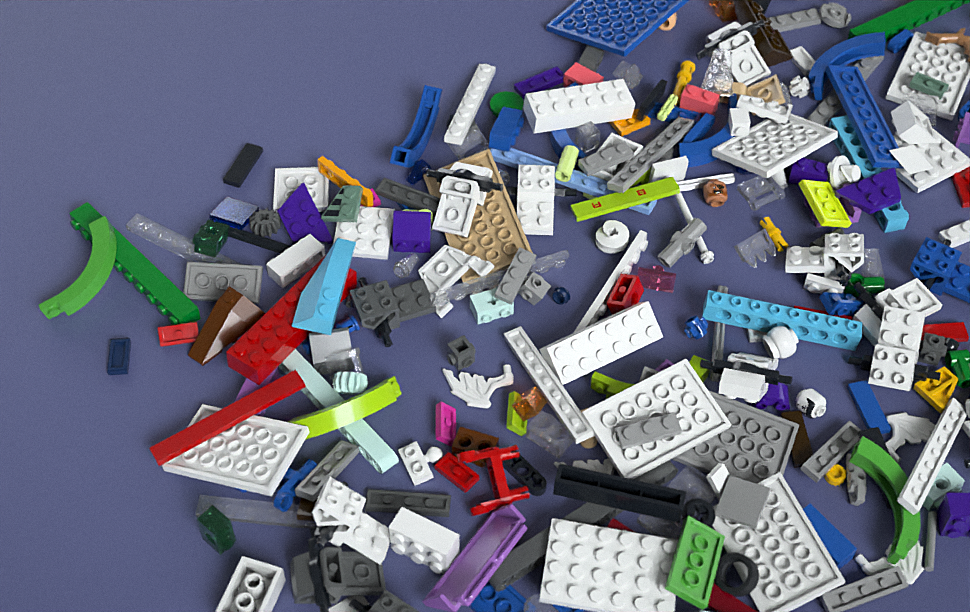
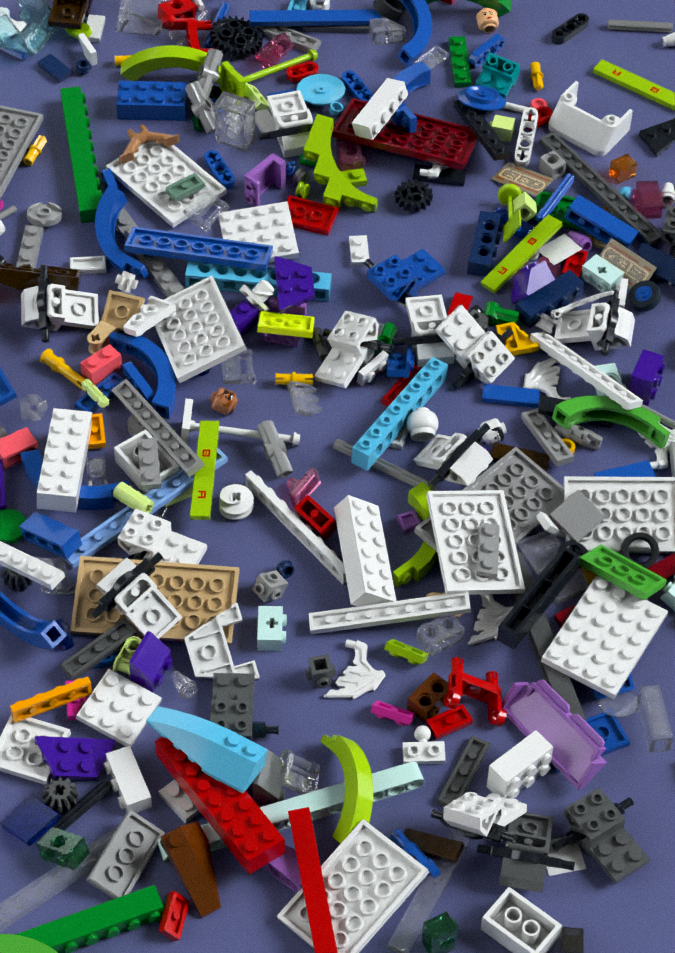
camera: 70 degrees left, 0 degrees up
(330, 466) = (410, 824): light grey plate -> none
(345, 205) = (88, 707): sand green wing -> none
(350, 383) = (322, 770): light aqua gear -> none
(493, 280) = (247, 600): clear plate -> none
(515, 276) = (259, 590): light grey plate -> none
(526, 480) = (475, 664): black beam -> none
(529, 403) = (405, 635): clear orange brick -> none
(651, 100) = (82, 399): black tile -> none
(696, 327) = (374, 479): blue gear -> none
(698, 183) = (202, 405): axle -> none
(719, 73) = (85, 332): clear wing -> none
(739, 121) = (158, 342): white brick -> none
(911, 159) = (269, 240): white sticker -> none
(912, 124) = (228, 221): white slope -> none

